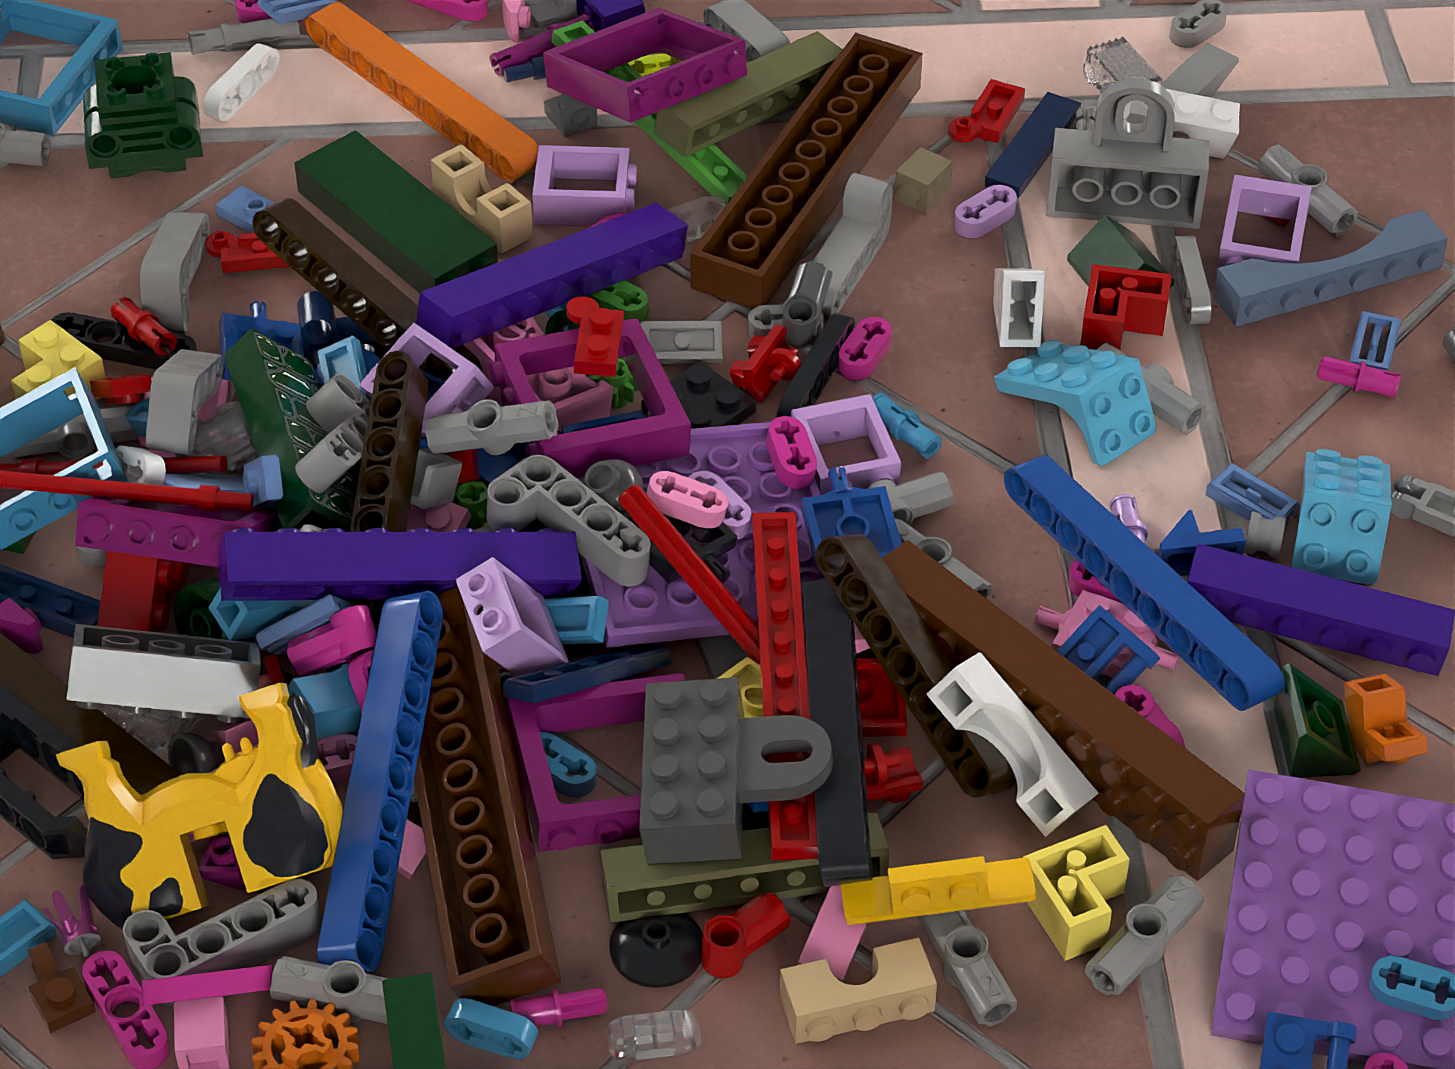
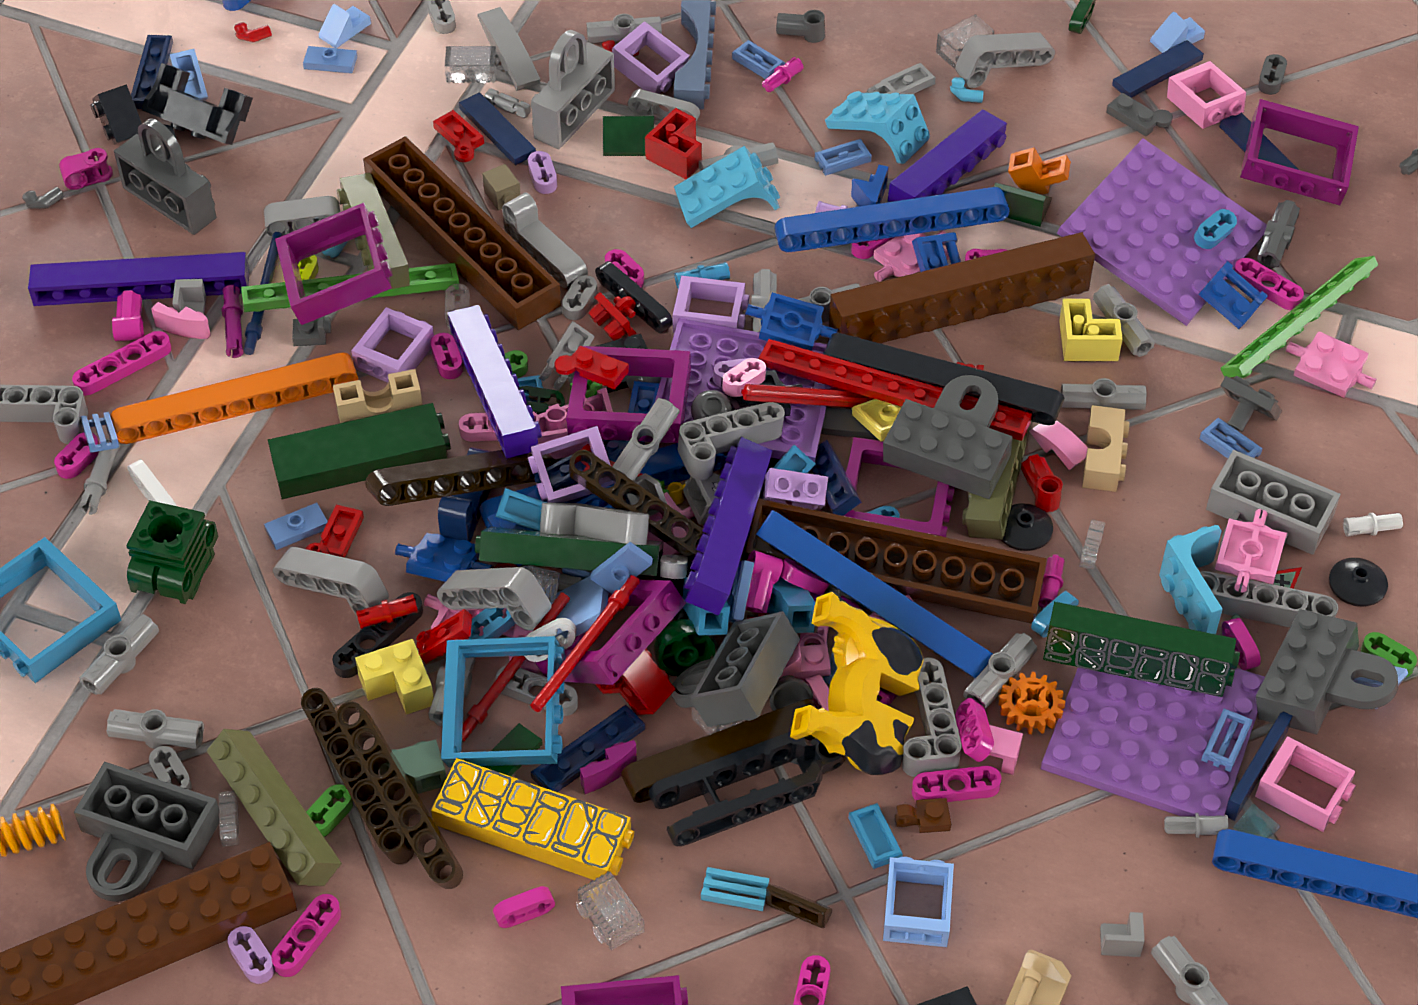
camera: 65 degrees left, 5 degrees up
(77, 935) = (890, 790): flat silver piece -> none
(783, 453) = (710, 326): dark pink beam -> none
(806, 302) = (591, 277): dark grey piece -> none
(908, 657) = (901, 325): dark brown beam -> none
(938, 889) = (1072, 379): yellow bracket -> none
(1018, 306) = (648, 181): white slope -> none
(1047, 780) = (967, 310): white arch -> none
(1198, 118) = (532, 56): white arch -> none
(1265, 535) = (880, 156): light grey wheel -> none

